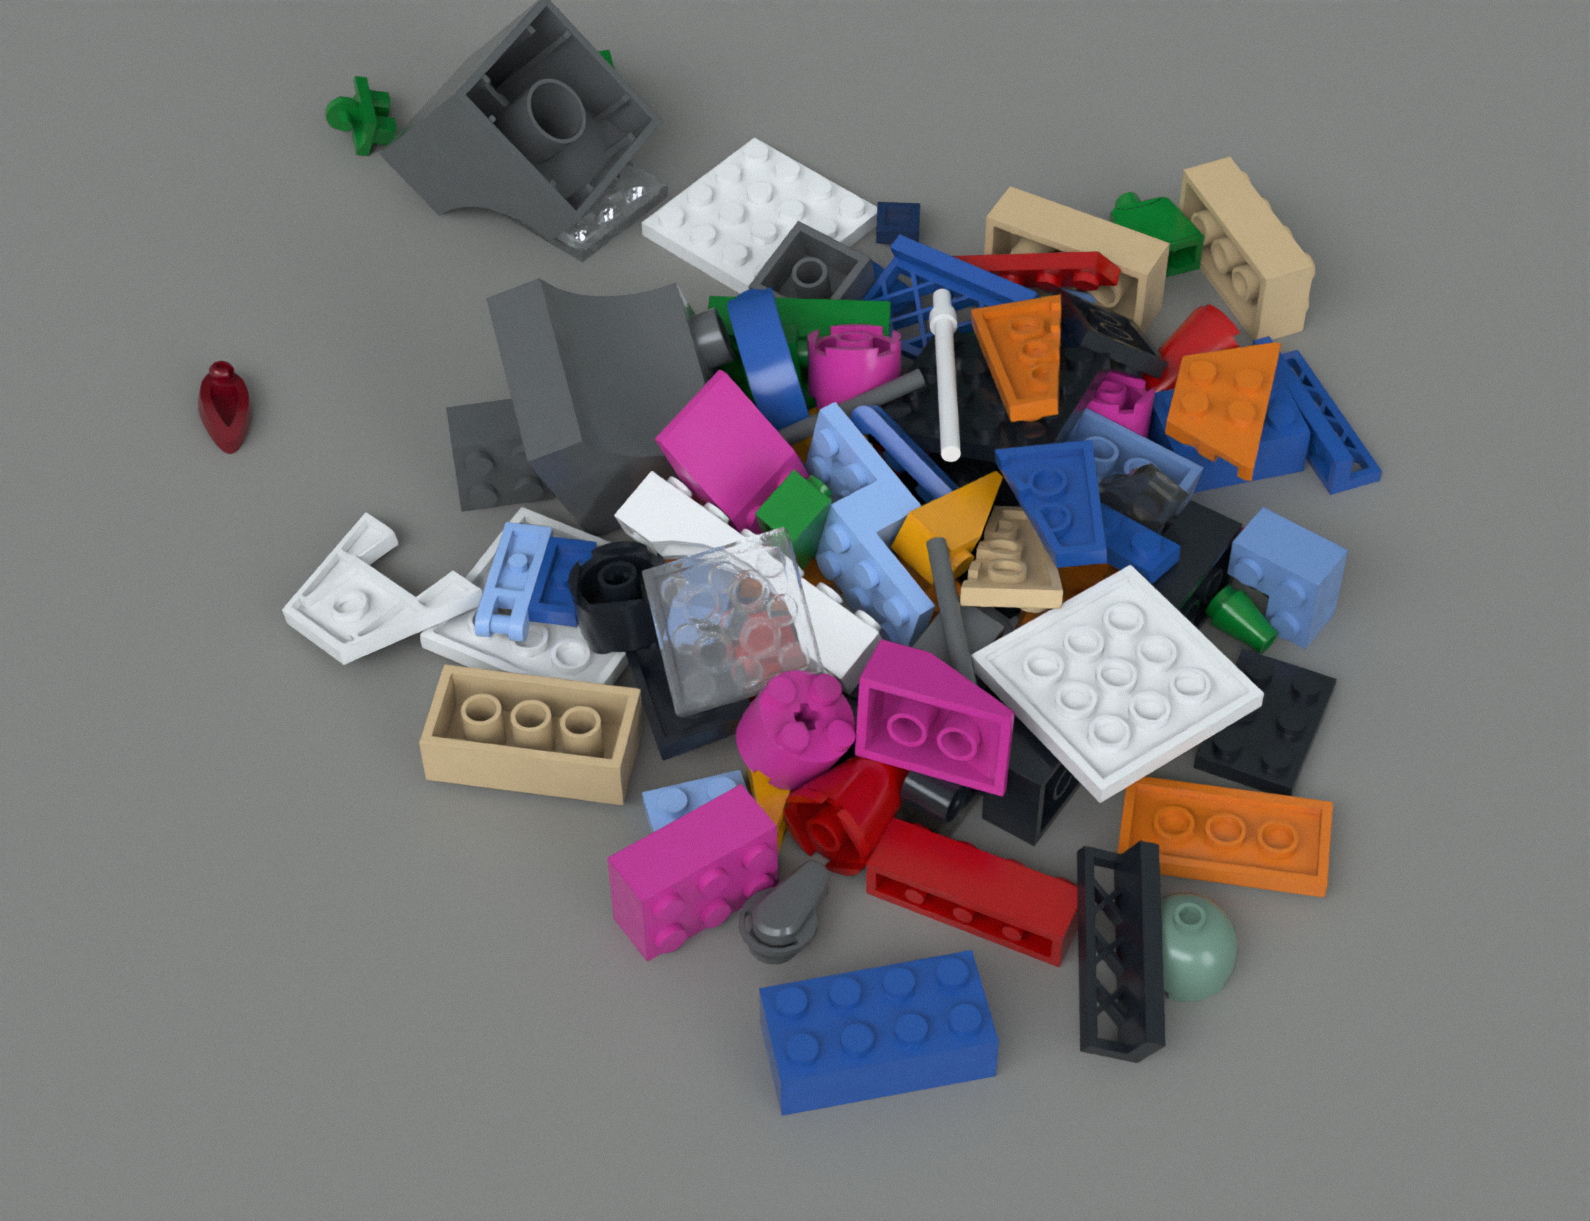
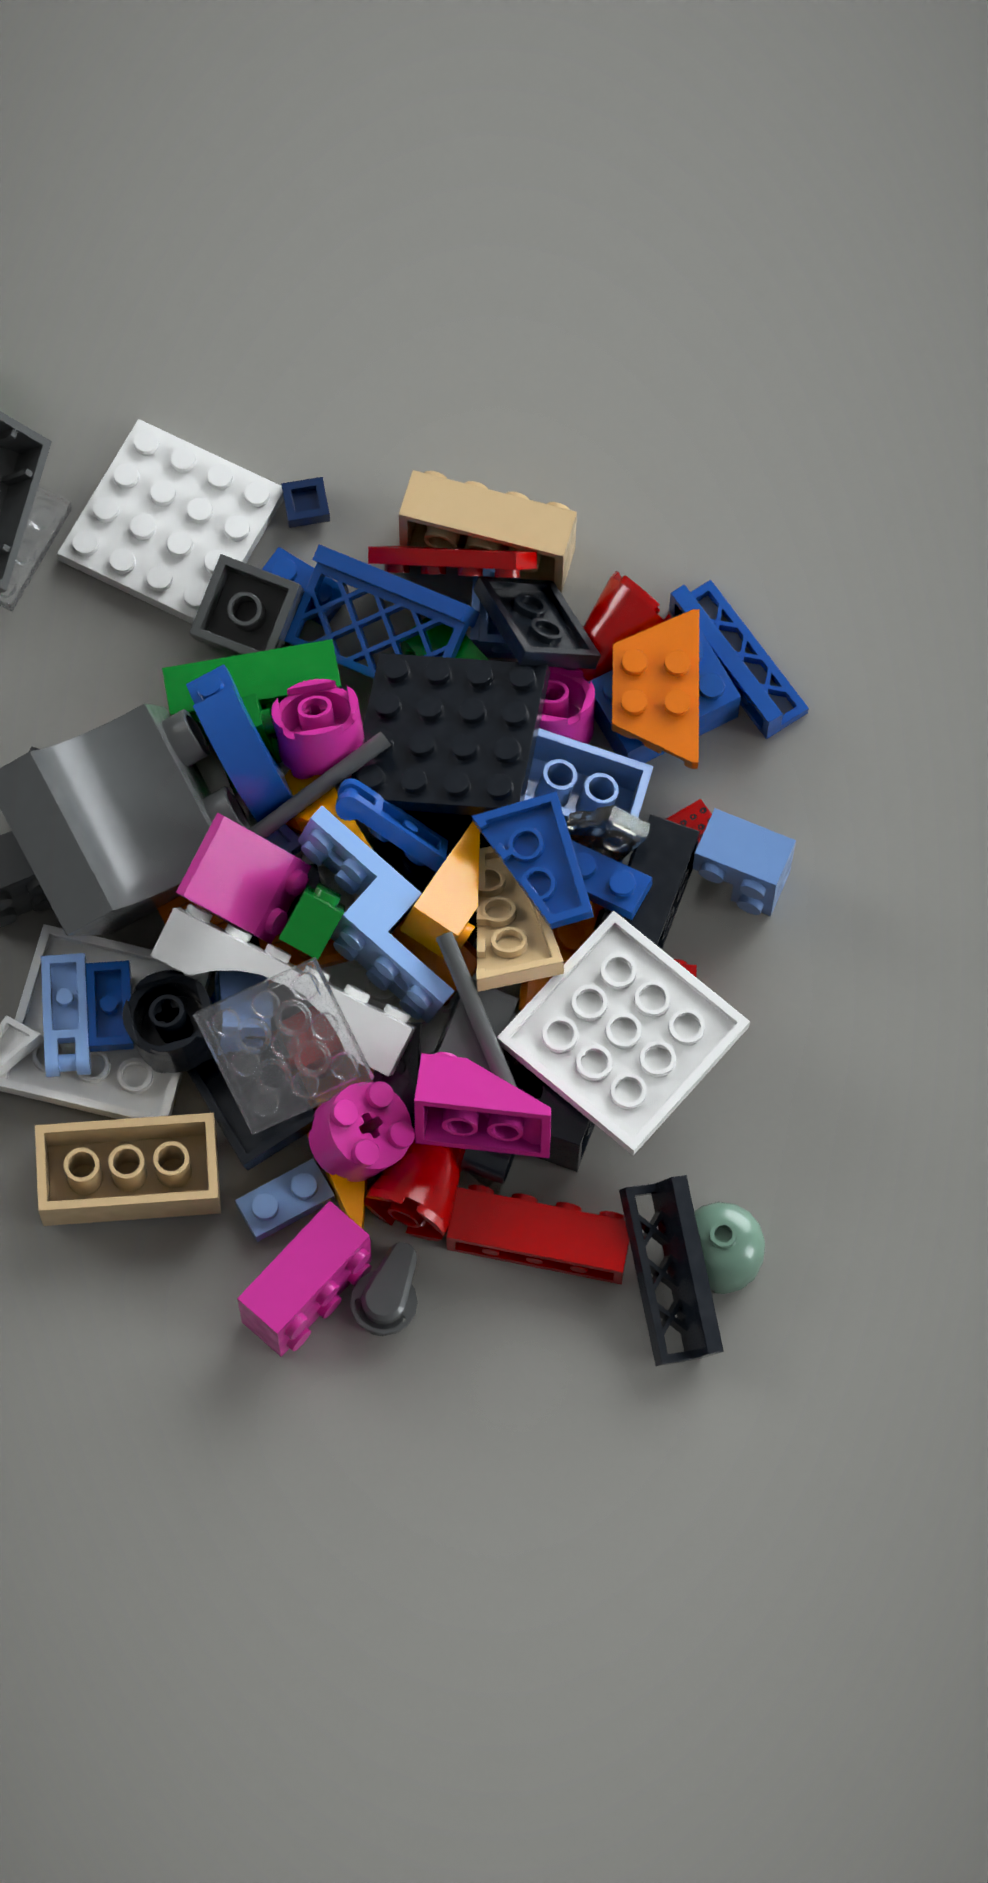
camera: 15 degrees left, 20 degrees up
(878, 1032) = (490, 1387): blue brick -> none
(943, 325) = (388, 659): white bar -> none
(1023, 354) = (471, 689): orange wing -> none
(1165, 222) = (552, 468): green torso -> none
(1231, 834) = (741, 1133): orange plate -> none
(1240, 618) = (711, 904): green cone -> none
(1247, 250) = (643, 480): tan brick -> none
(1274, 740) = (762, 986): black plate -> none

